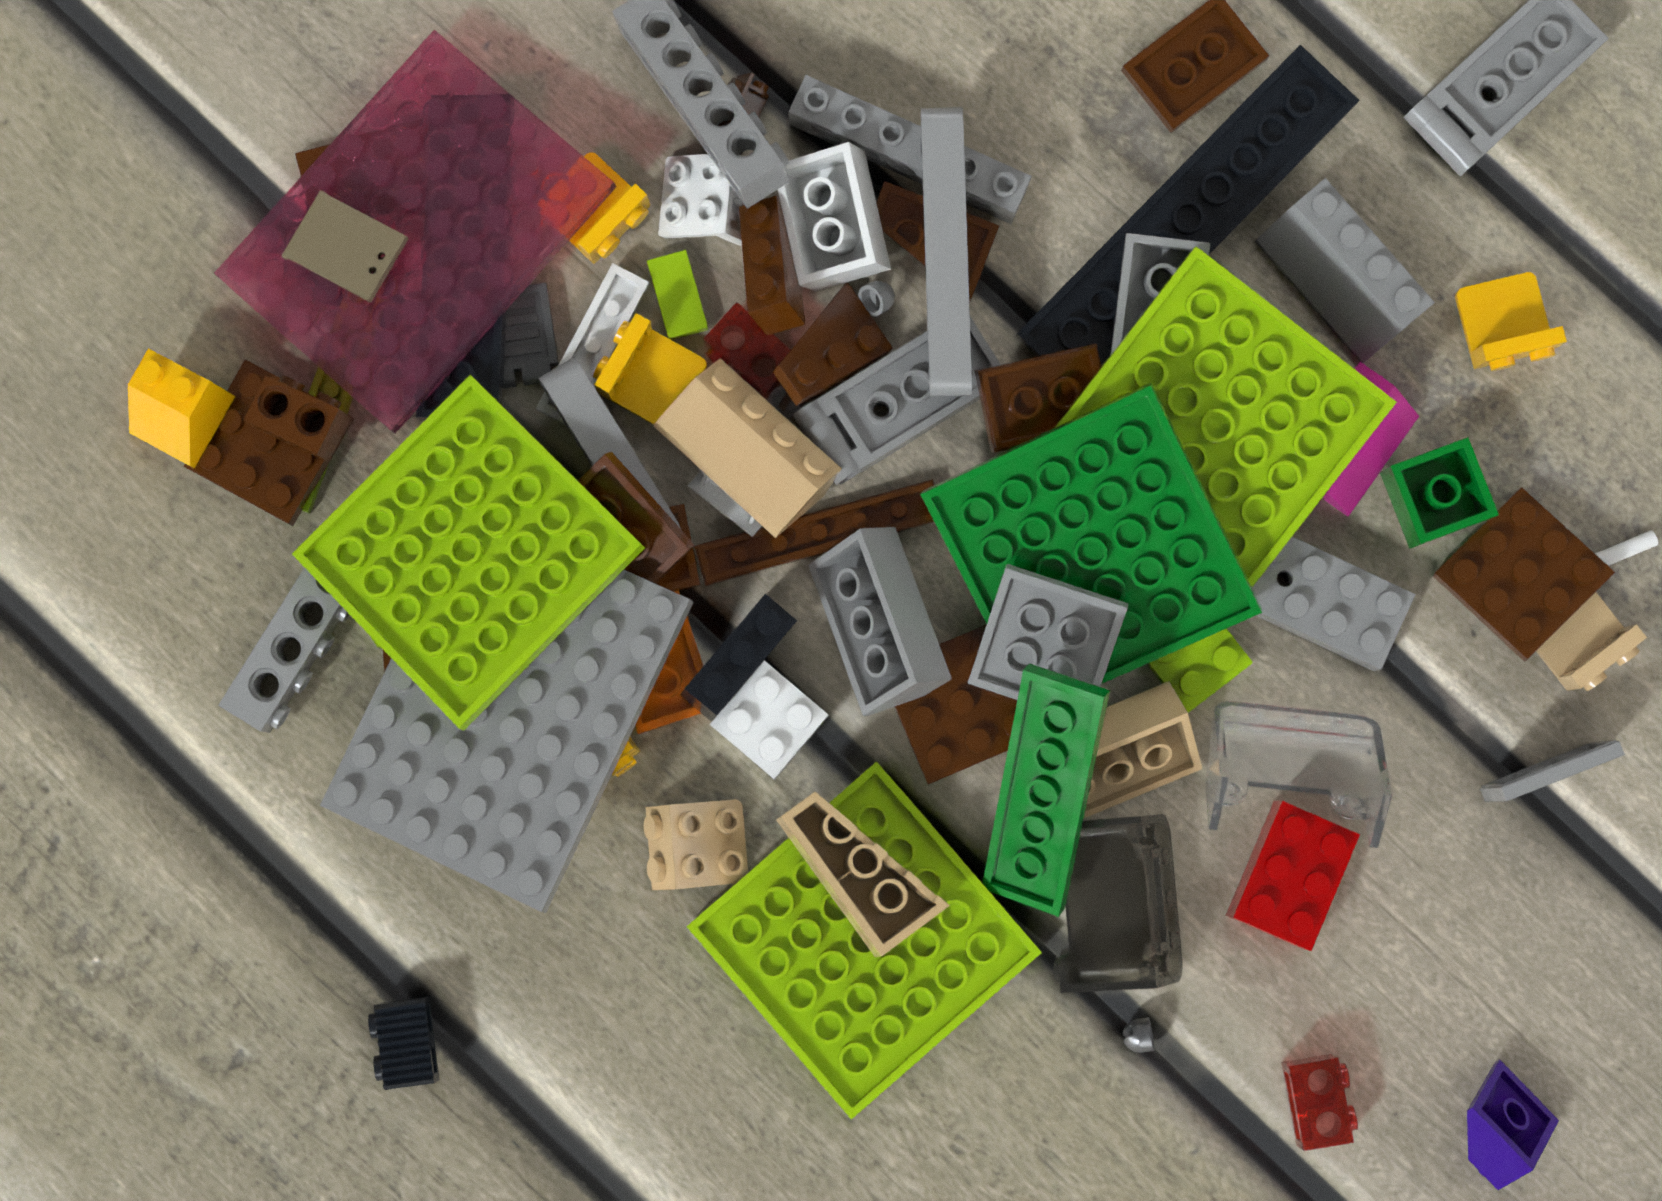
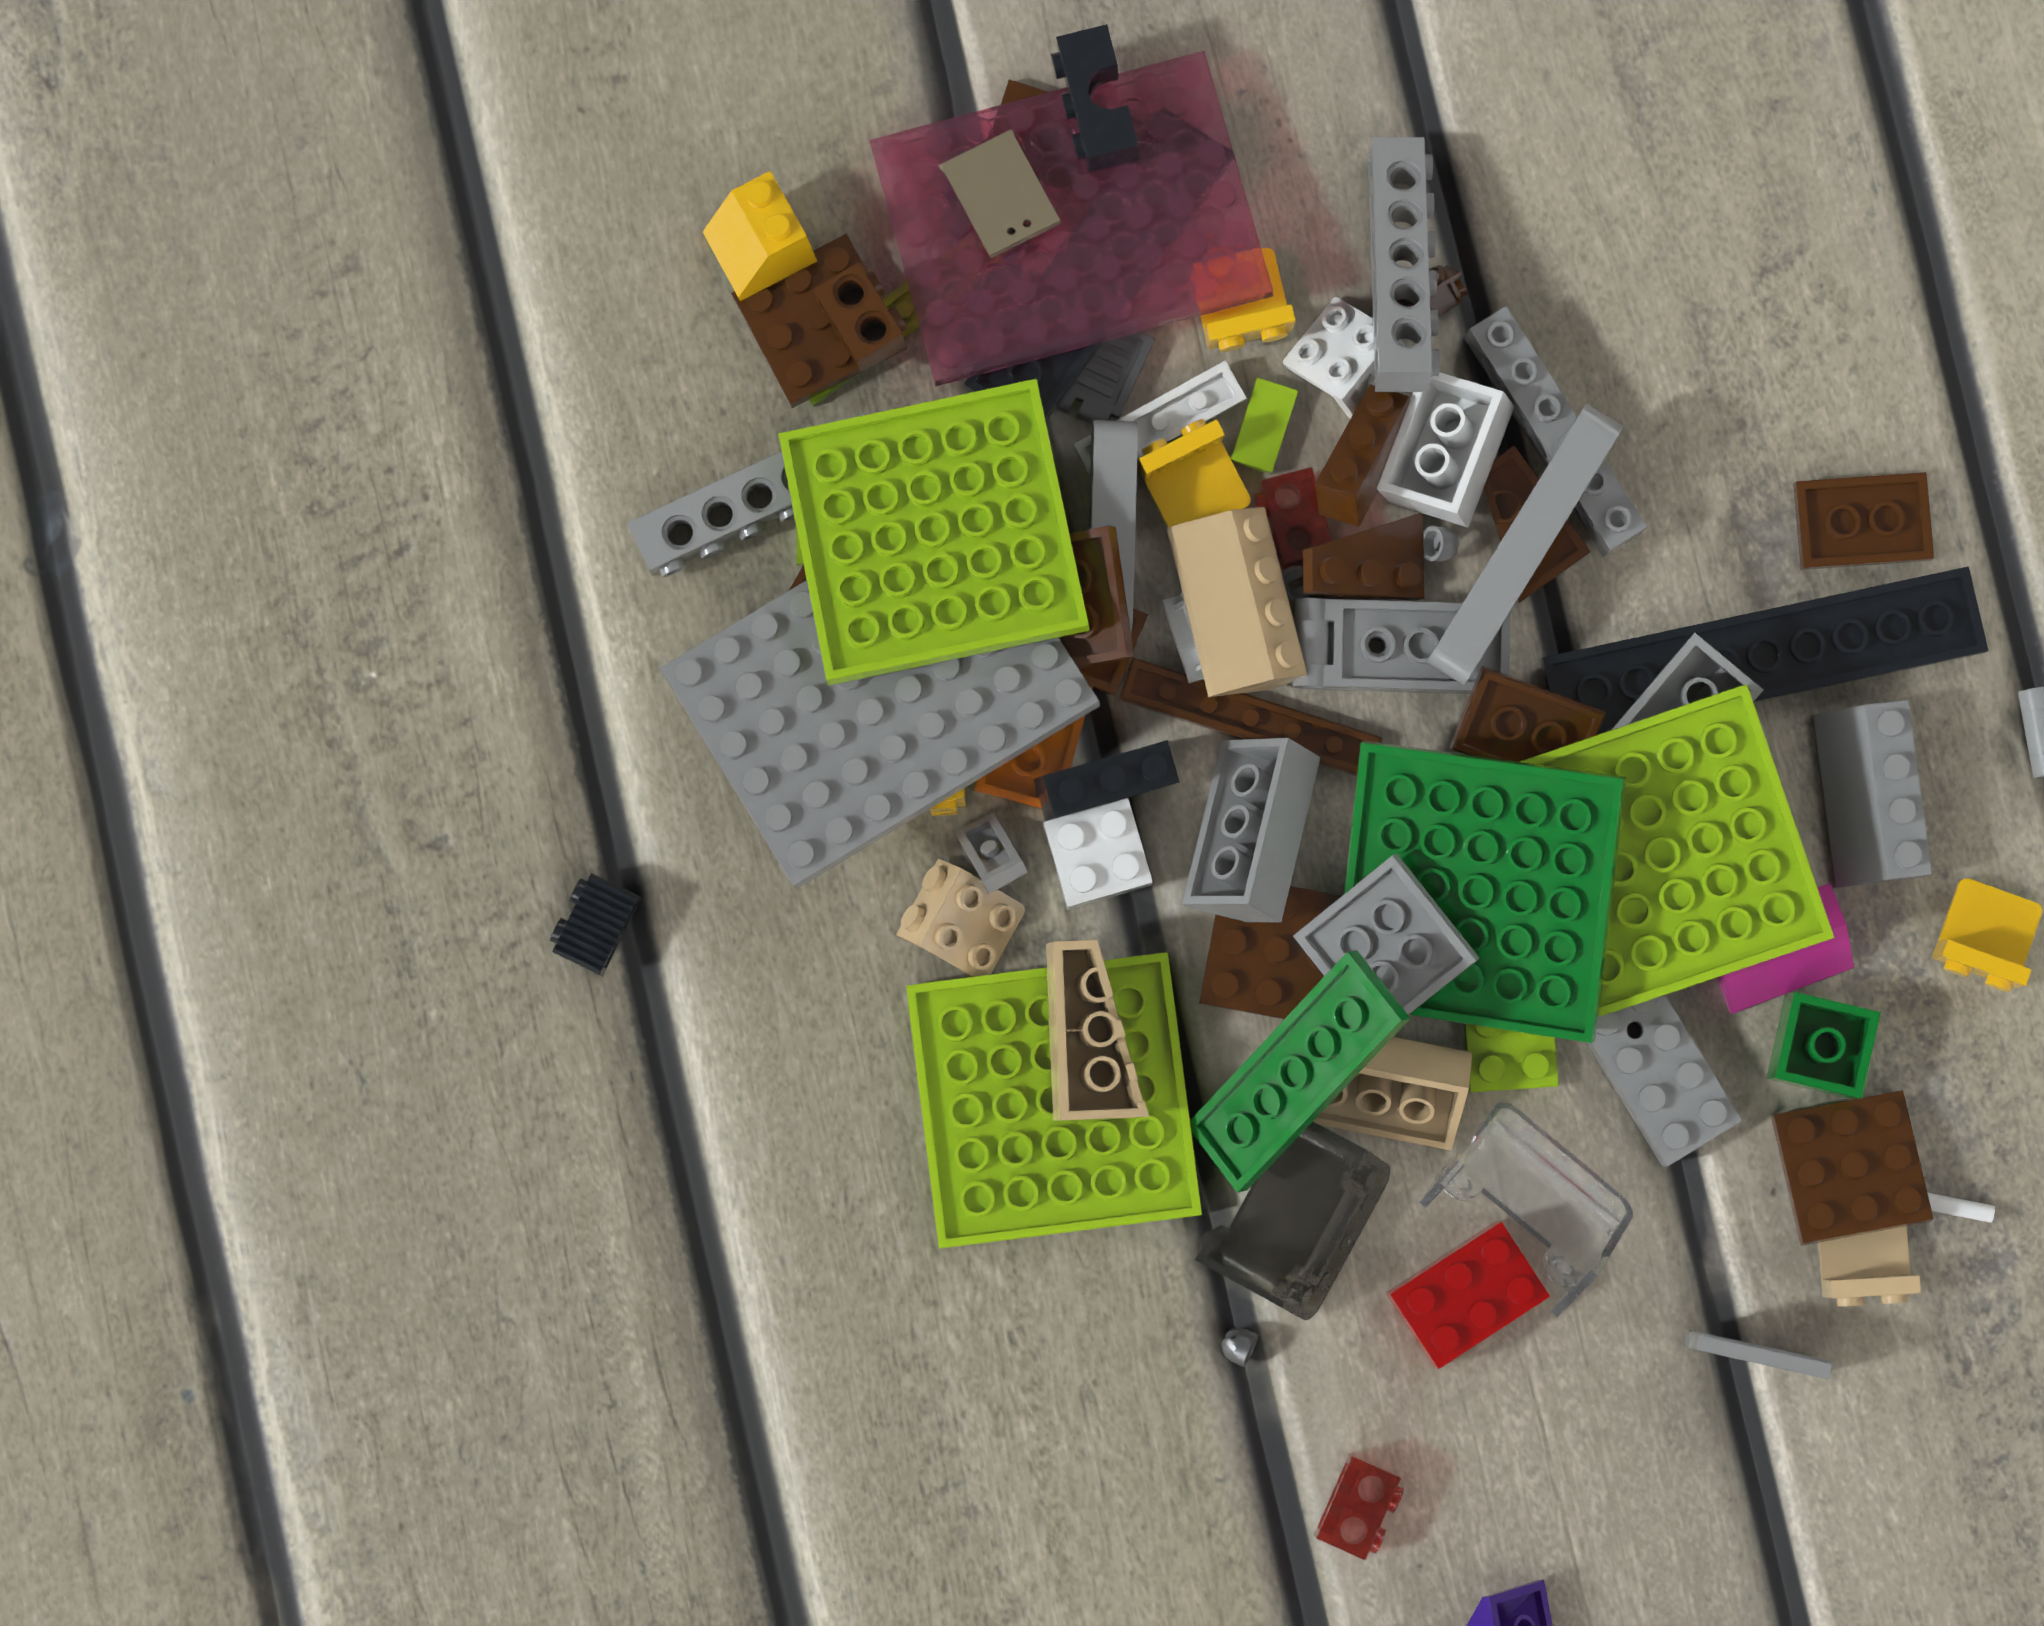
camera: 35 degrees right, 0 degrees up
(397, 144) = (1104, 134): none -> black arch
(684, 775) = (991, 852): none -> light grey slope

